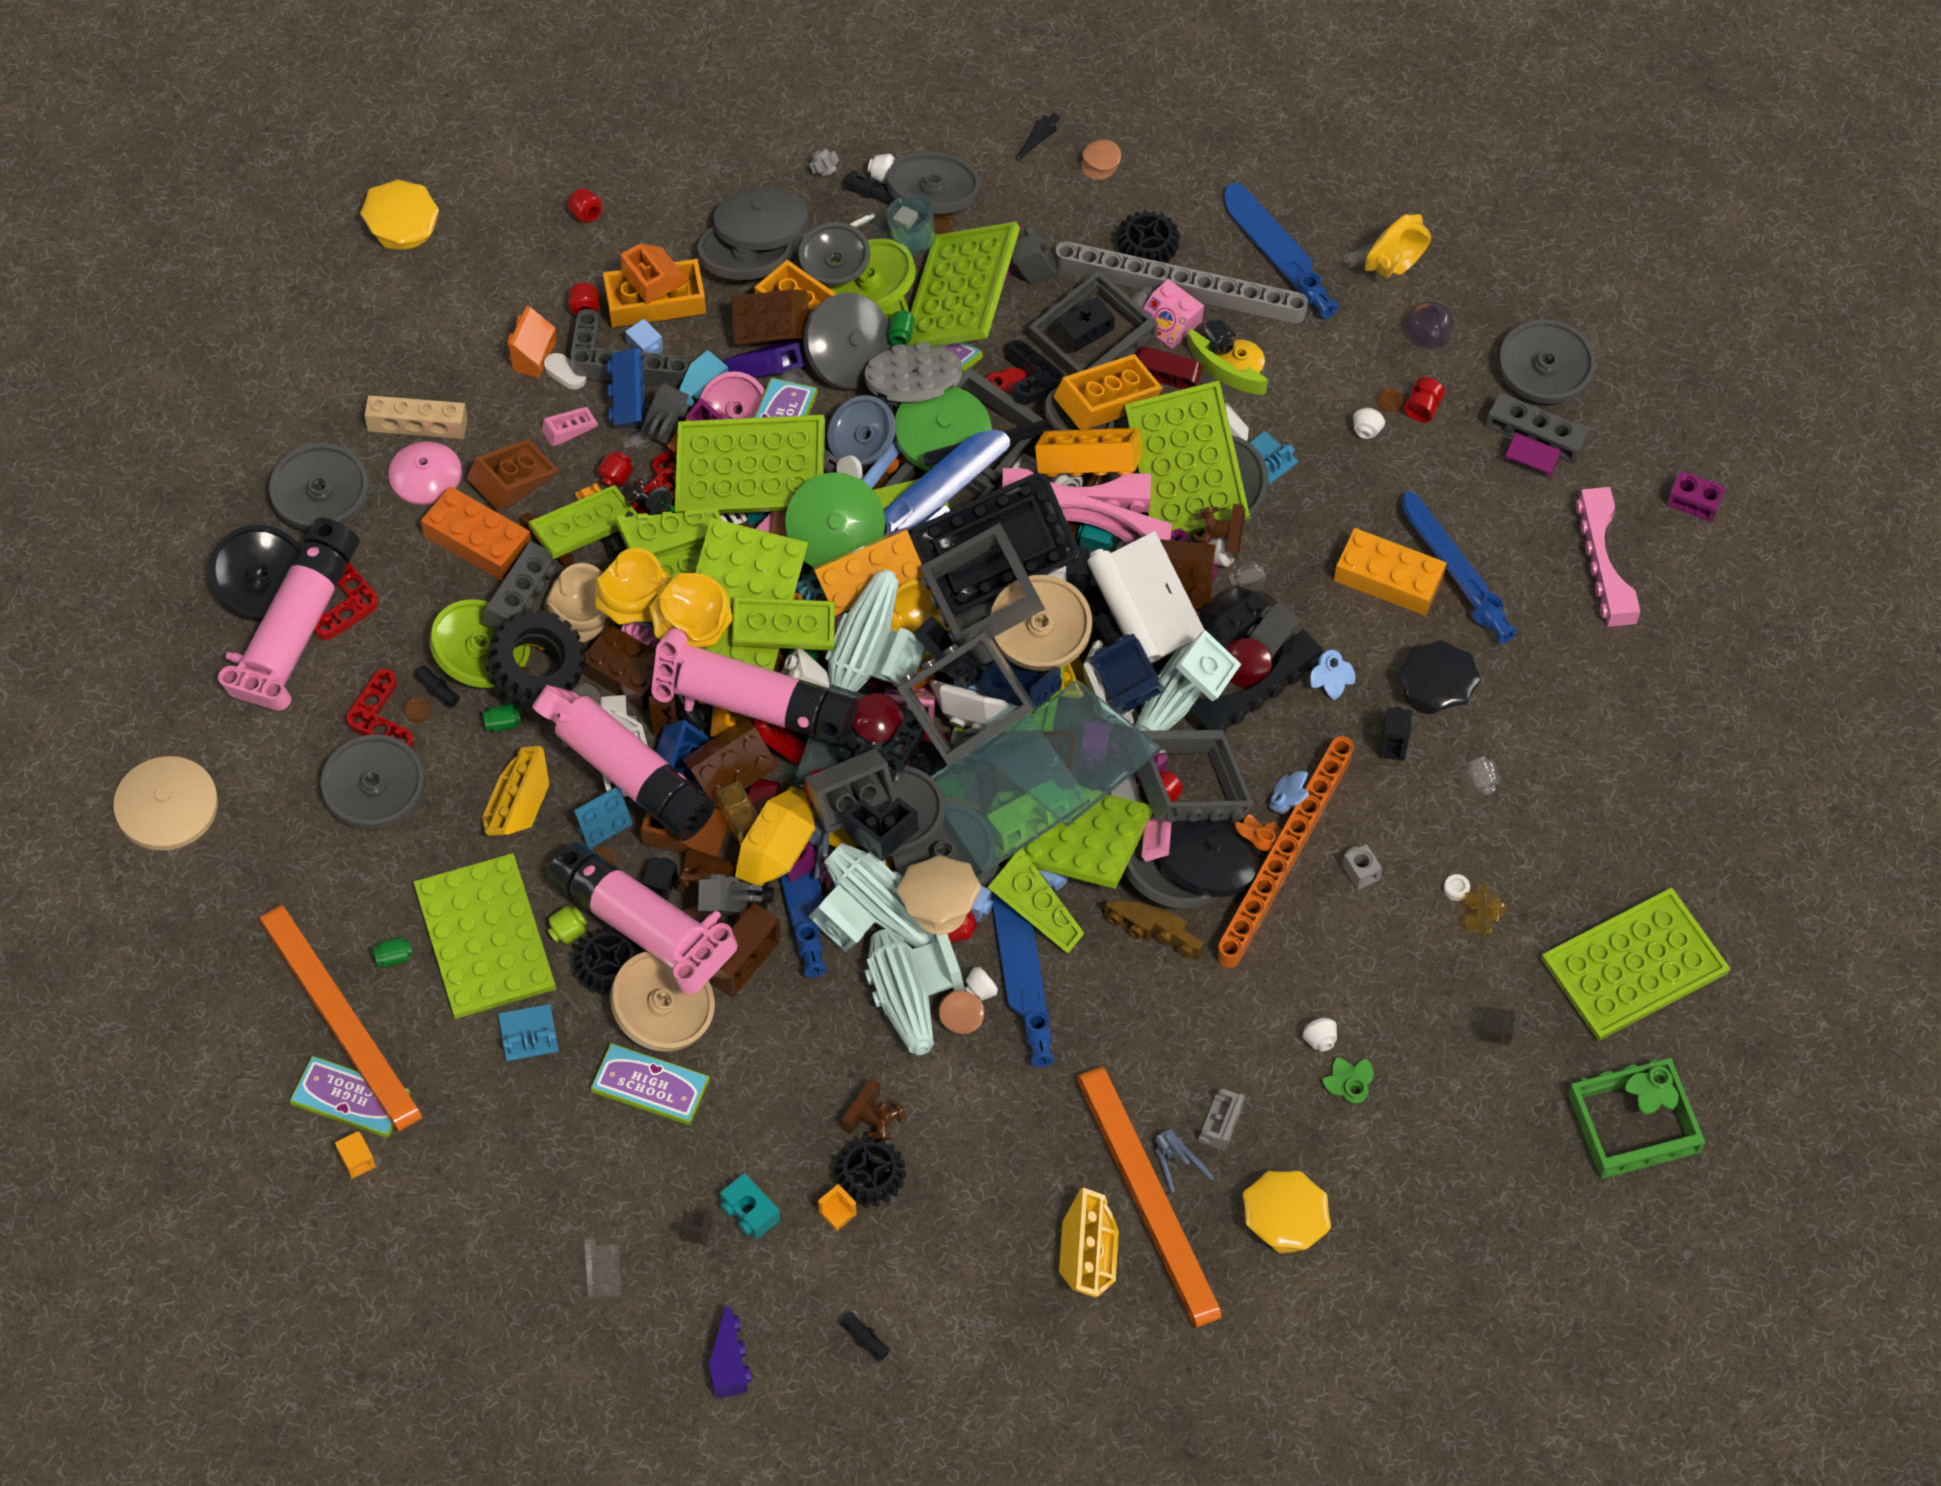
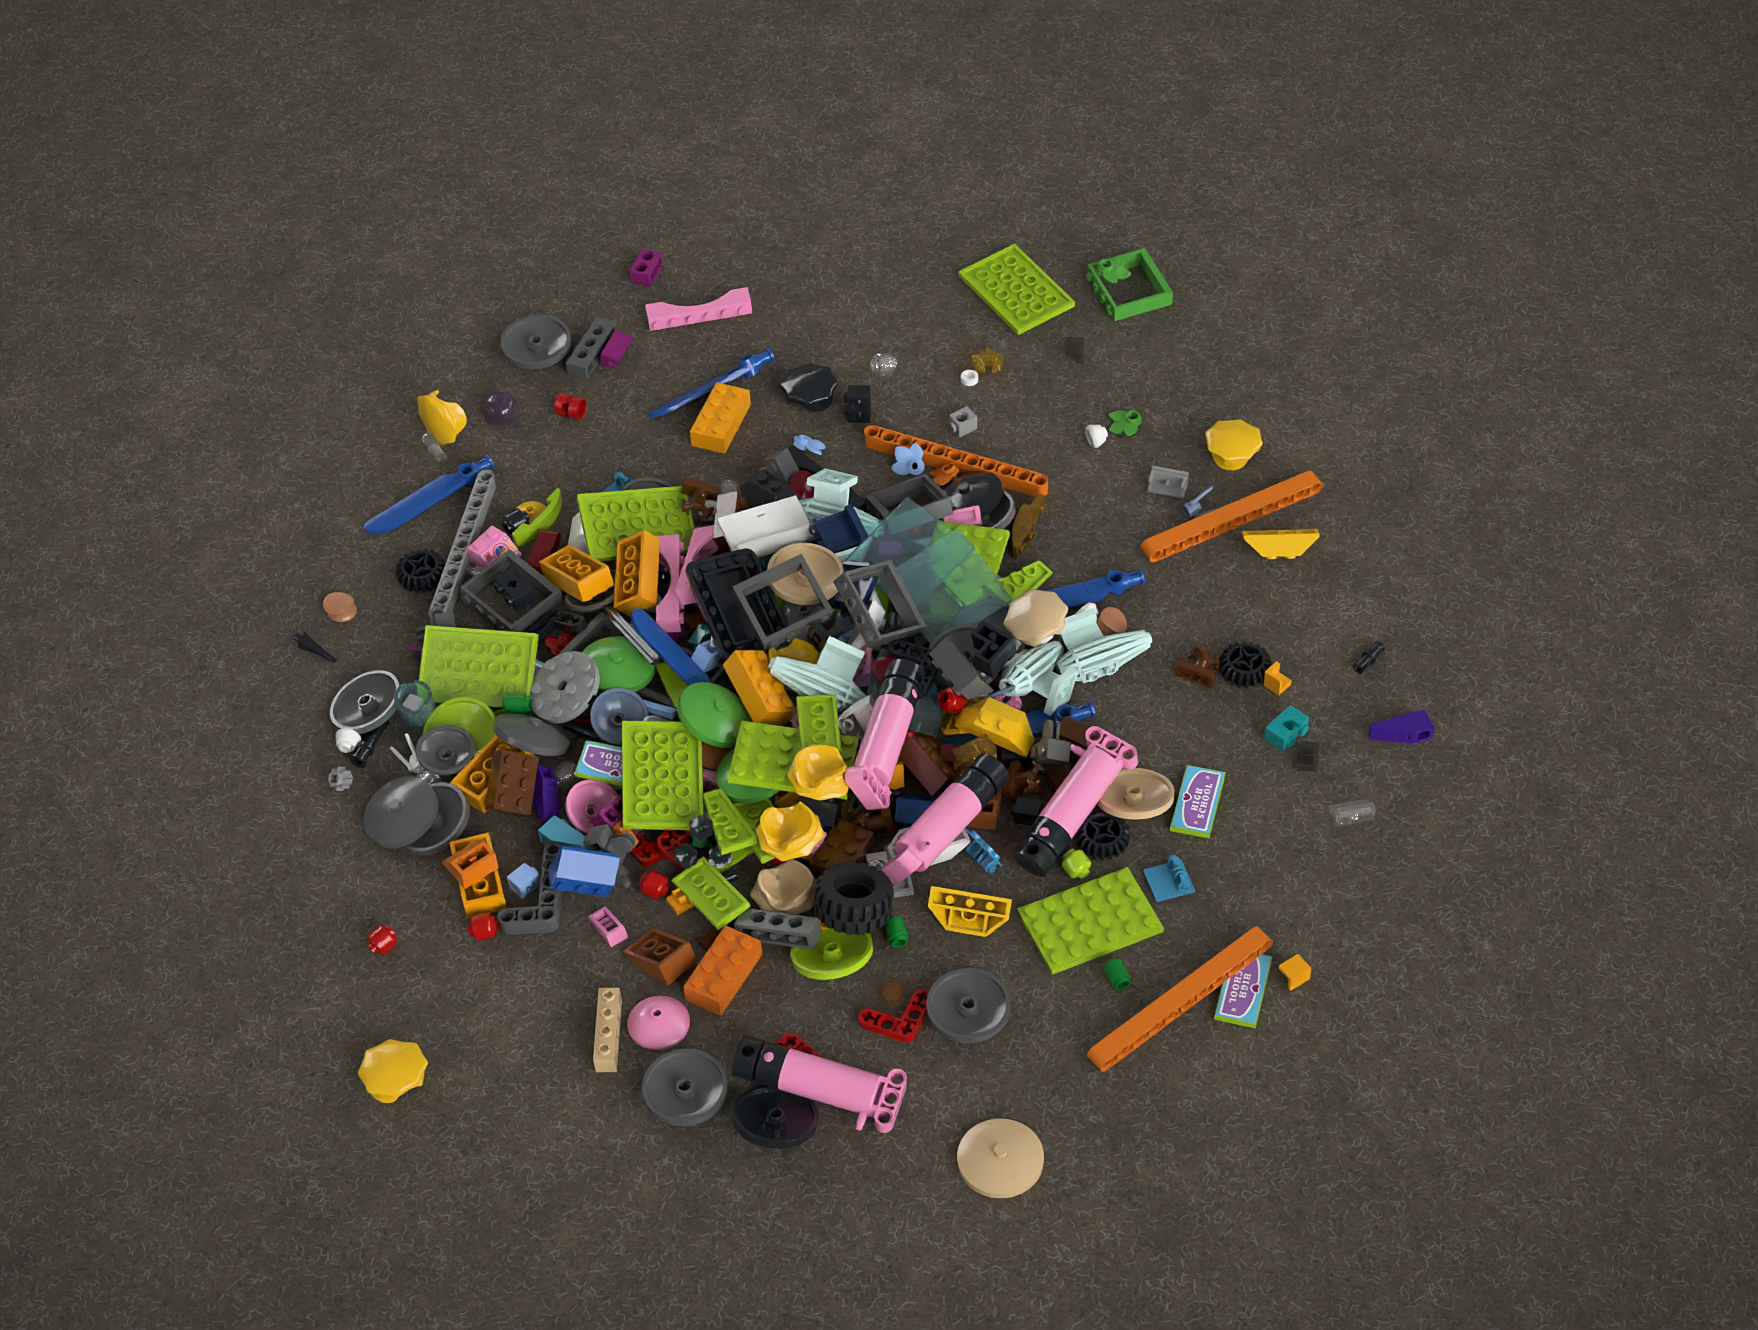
camera: 90 degrees left, 10 degrees down
(437, 686) = (870, 981): black pin -> none
(531, 343) = (532, 956): orange slope -> none
(560, 369) = (549, 940): white tile -> none
(1368, 422) = (591, 436): white cone -> none
(1391, 400) = (567, 427): clear orange plate -> none

